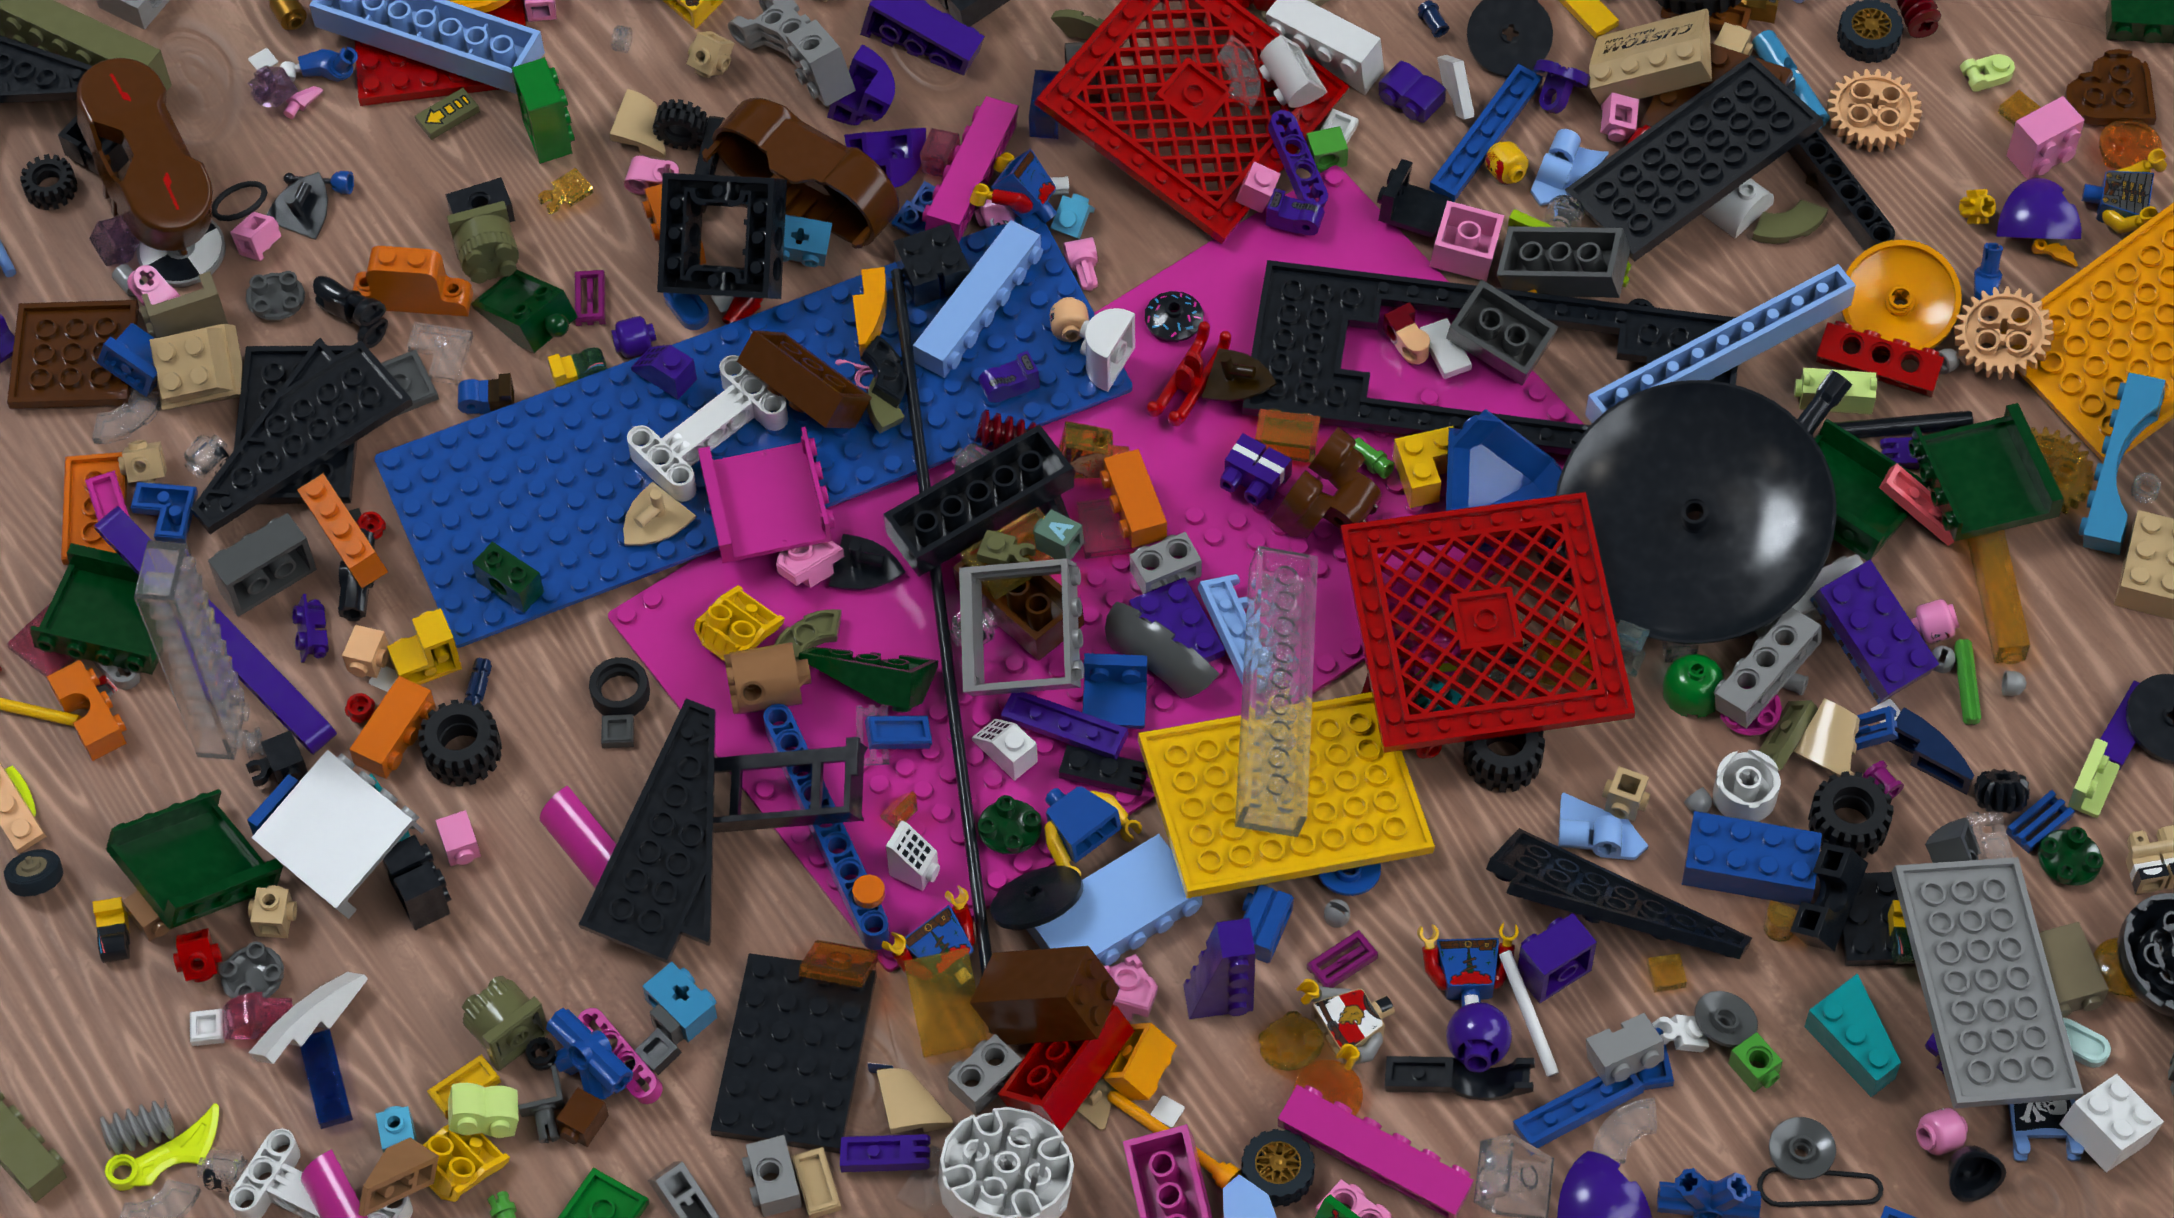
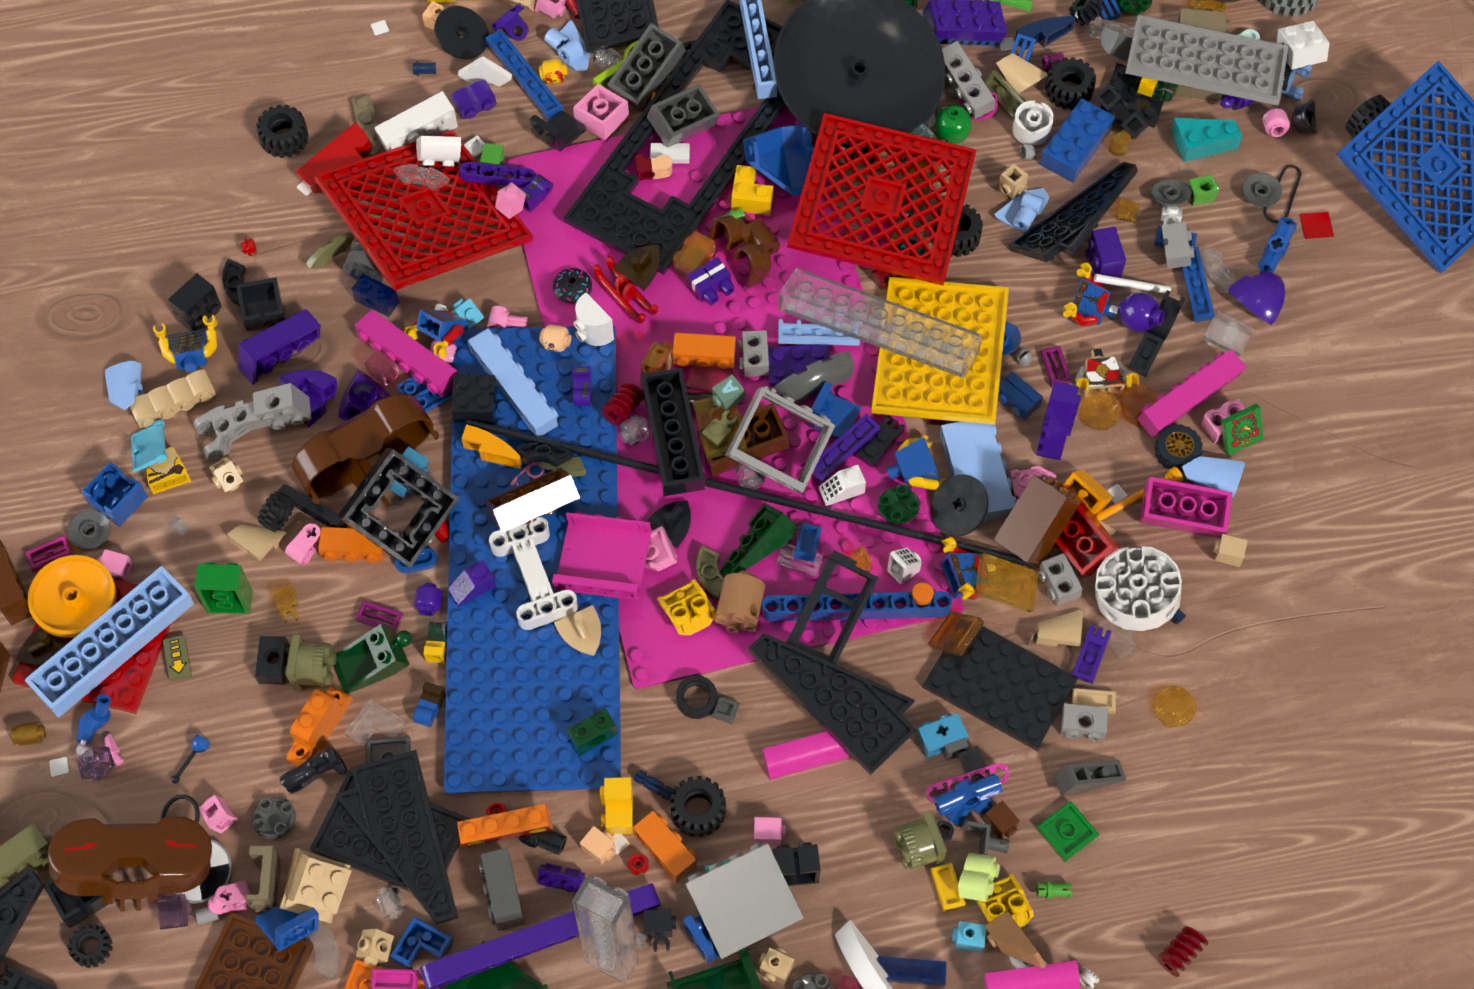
camera: 70 degrees left, 5 degrees up
(302, 206) = (205, 777): black shield -> none

